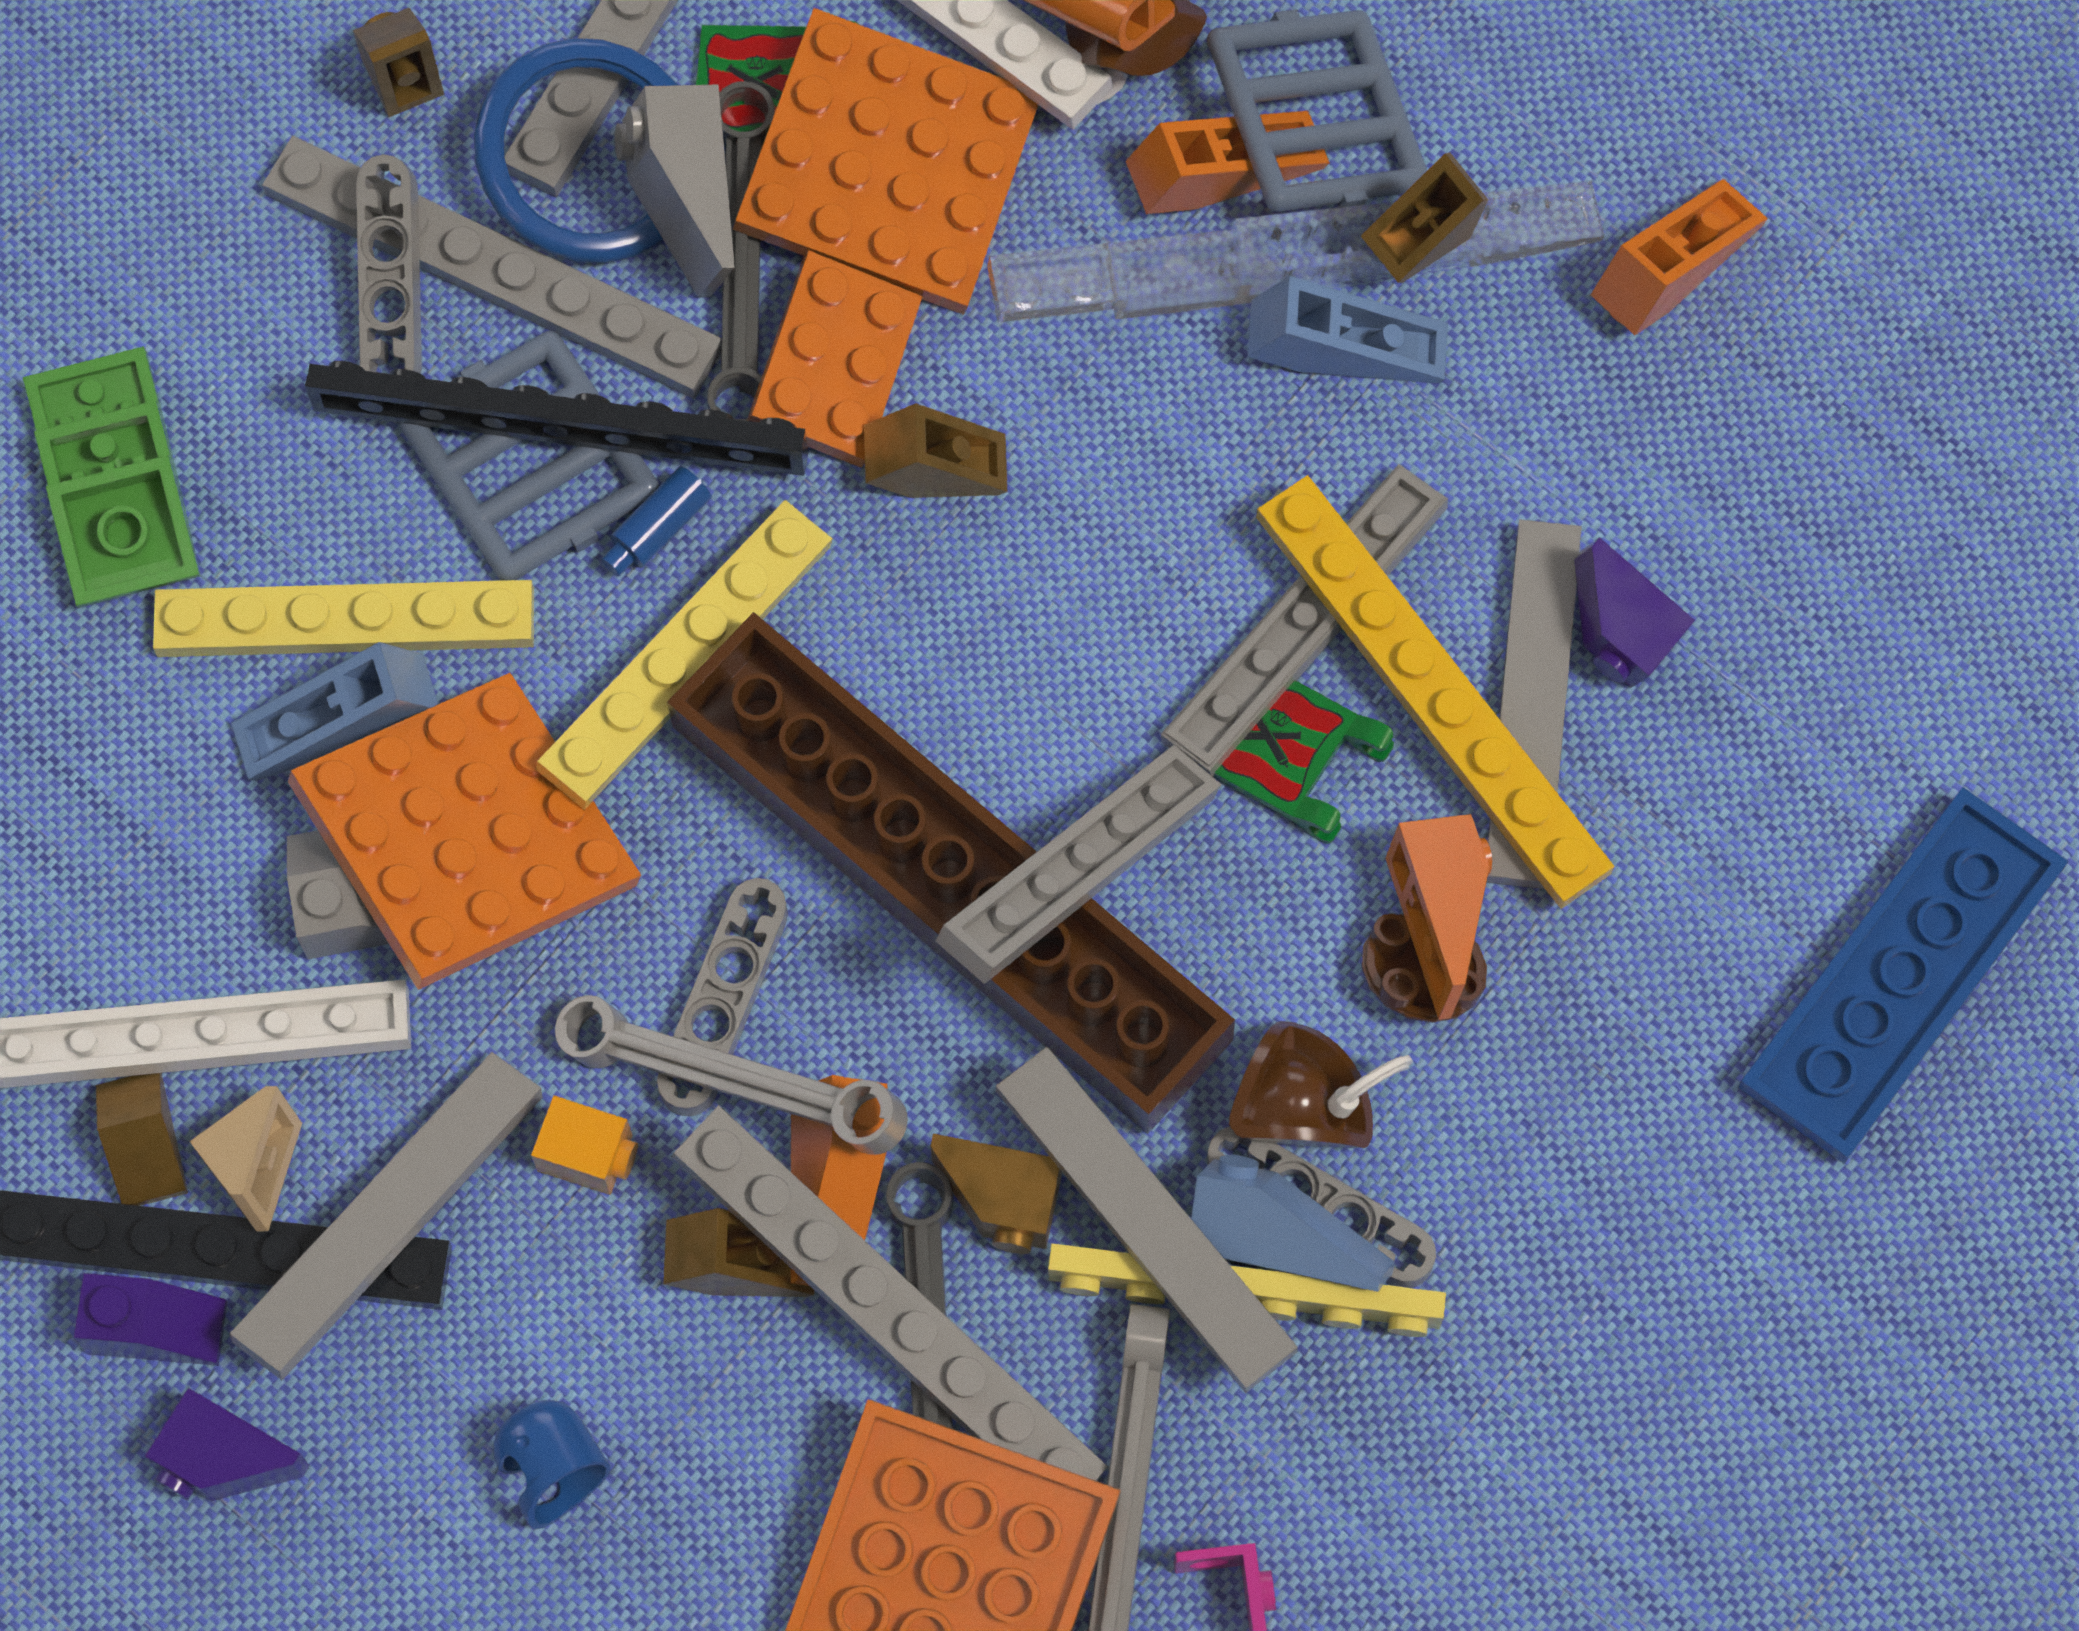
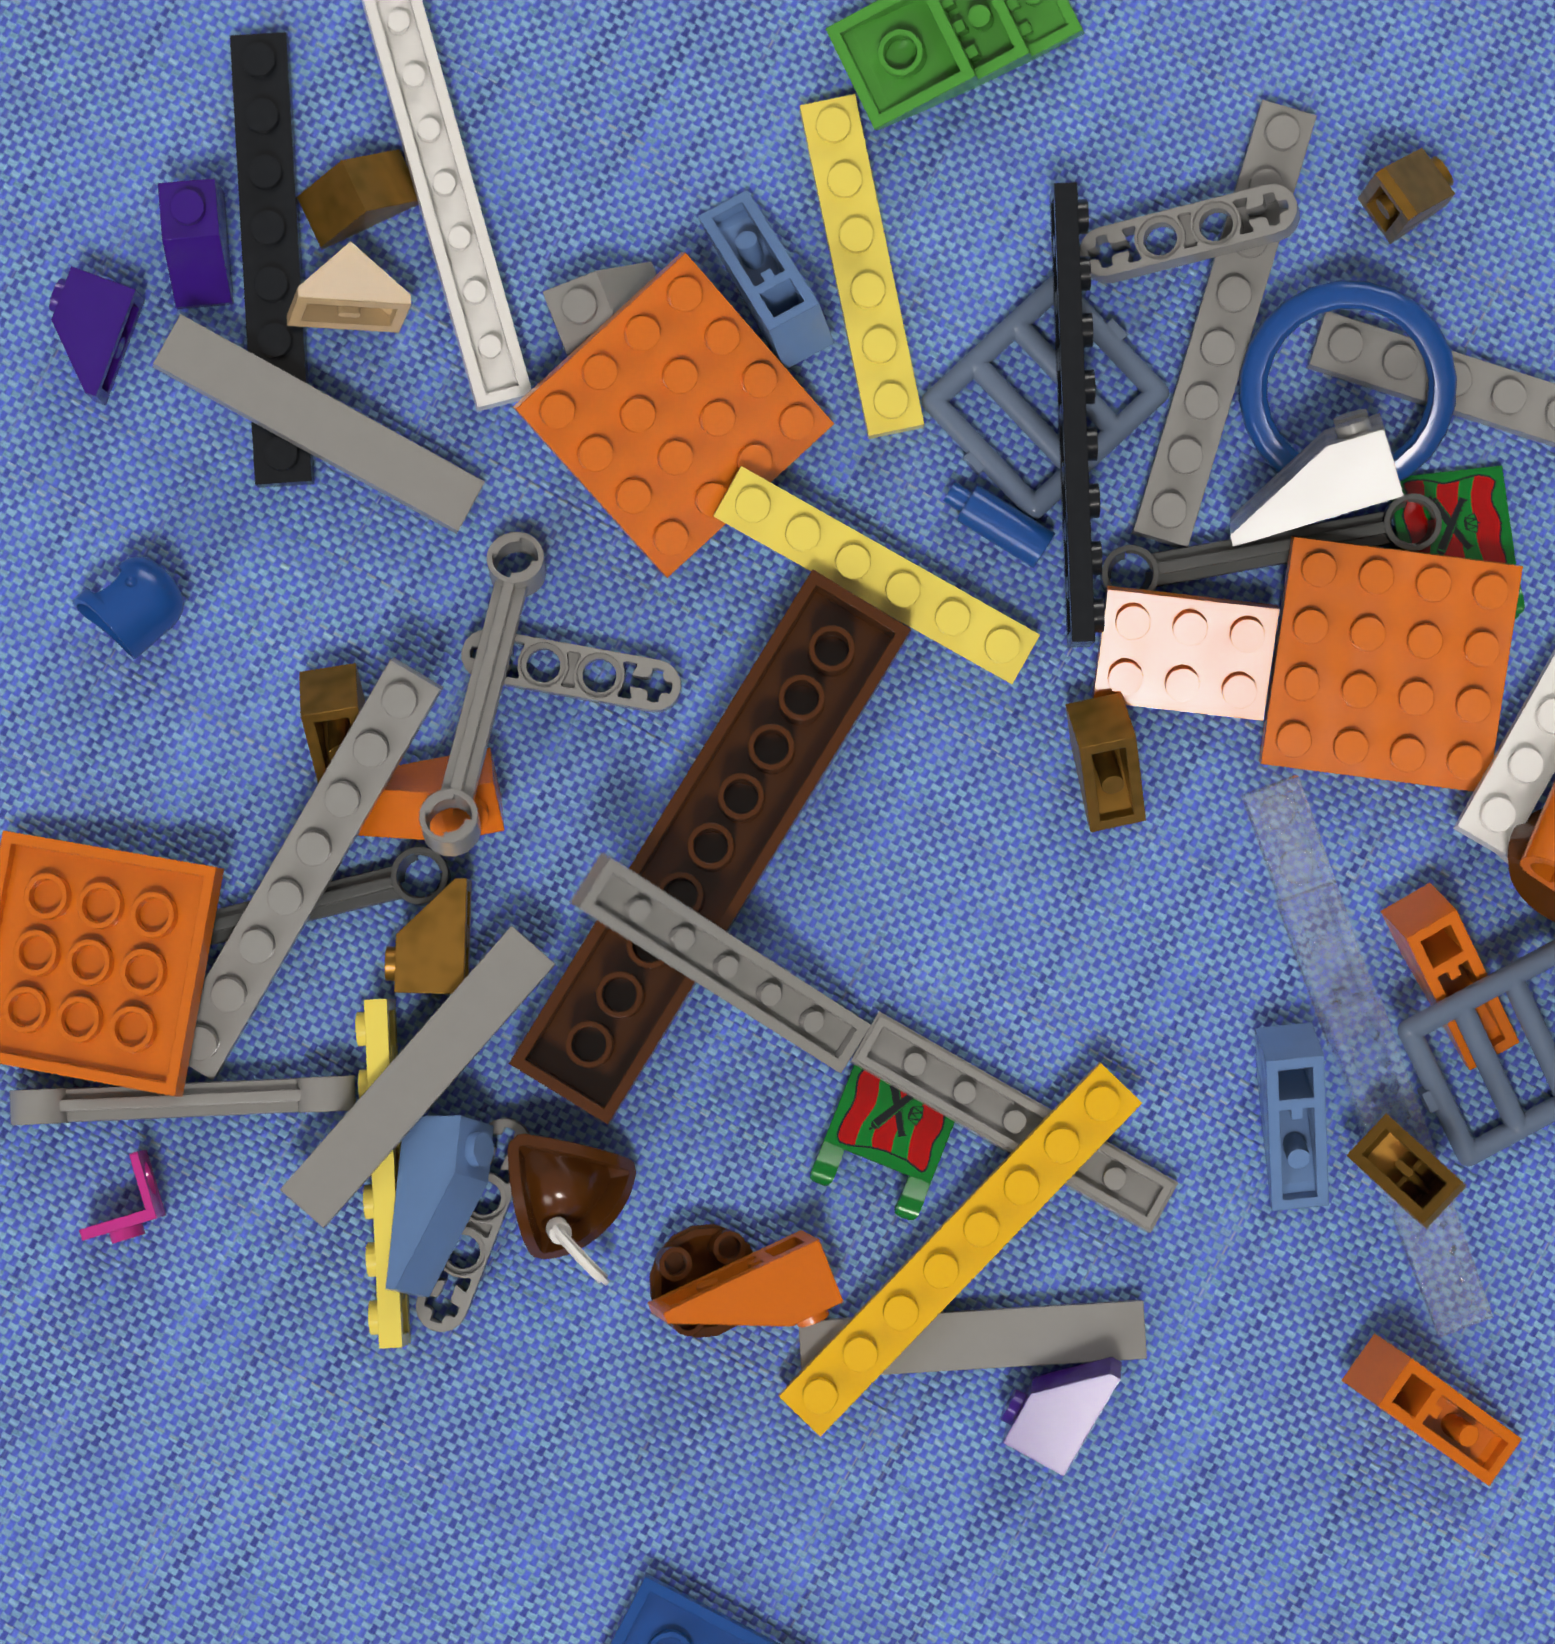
camera: 80 degrees right, 15 degrees up
(584, 1146) = (412, 579): light orange brick -> none

